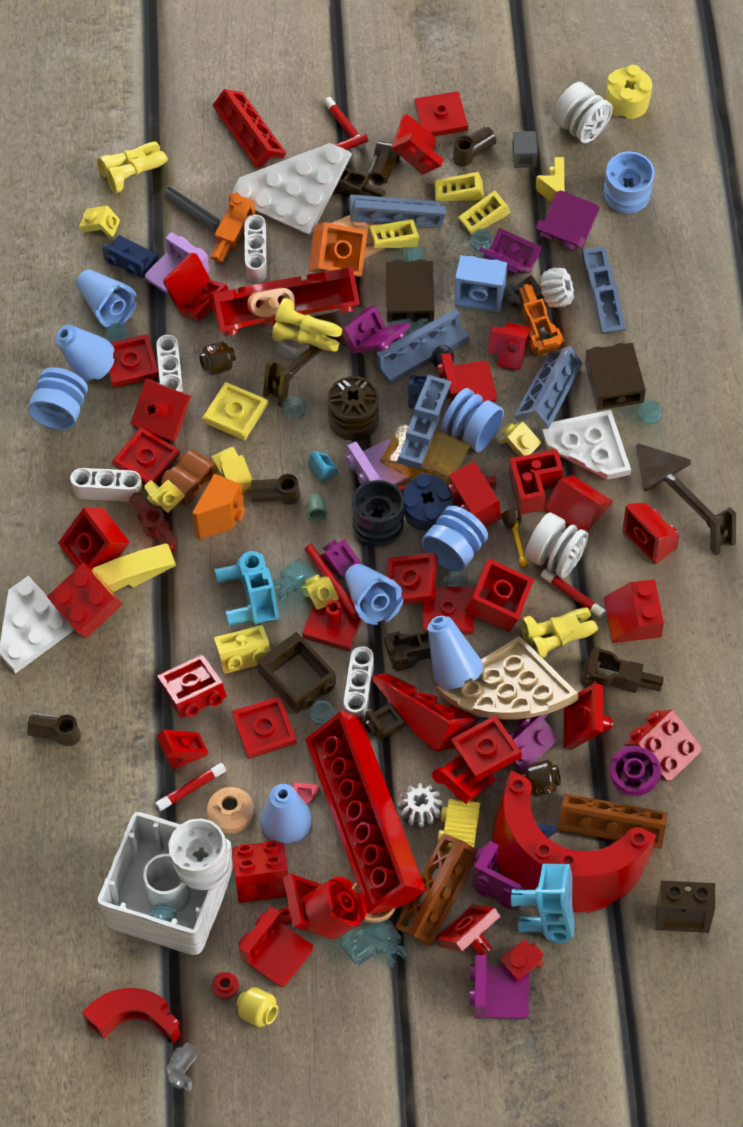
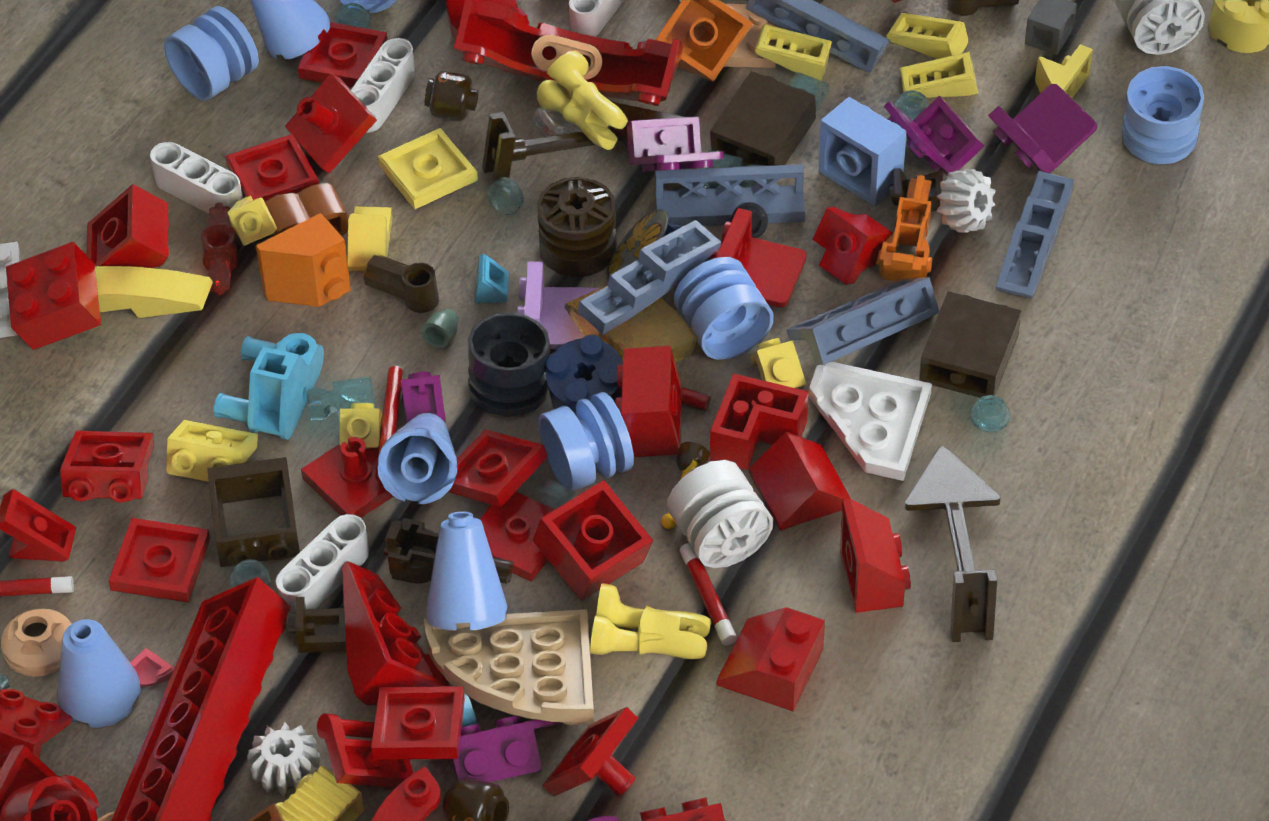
camera: 30 degrees right, 10 degrees down
(397, 404) = (643, 233): none -> shield
(627, 676) = (698, 733): dark brown piece -> none

